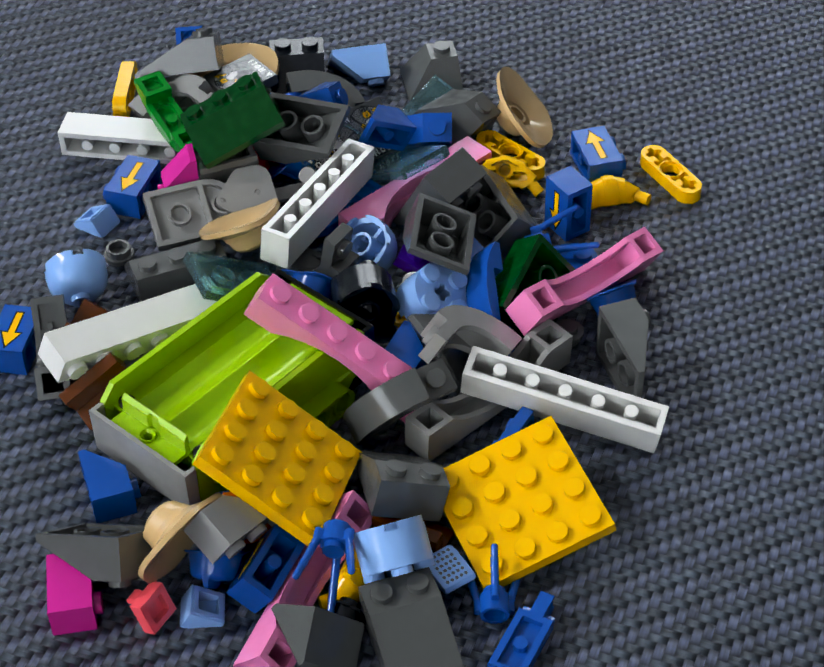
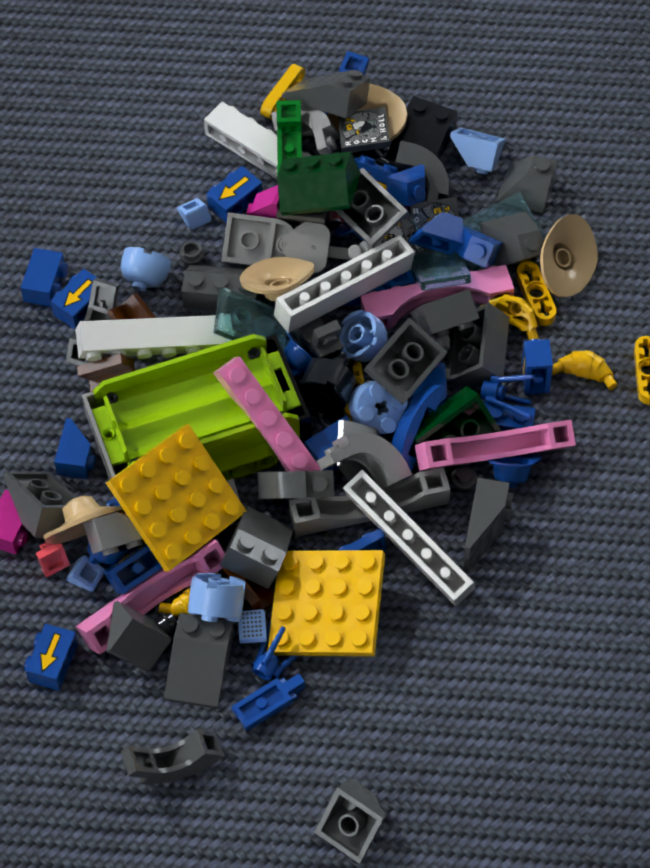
camera: 30 degrees right, 15 degrees up
(335, 540) = (178, 576): blue plant -> none
(596, 153) = (599, 326): blue brick -> none

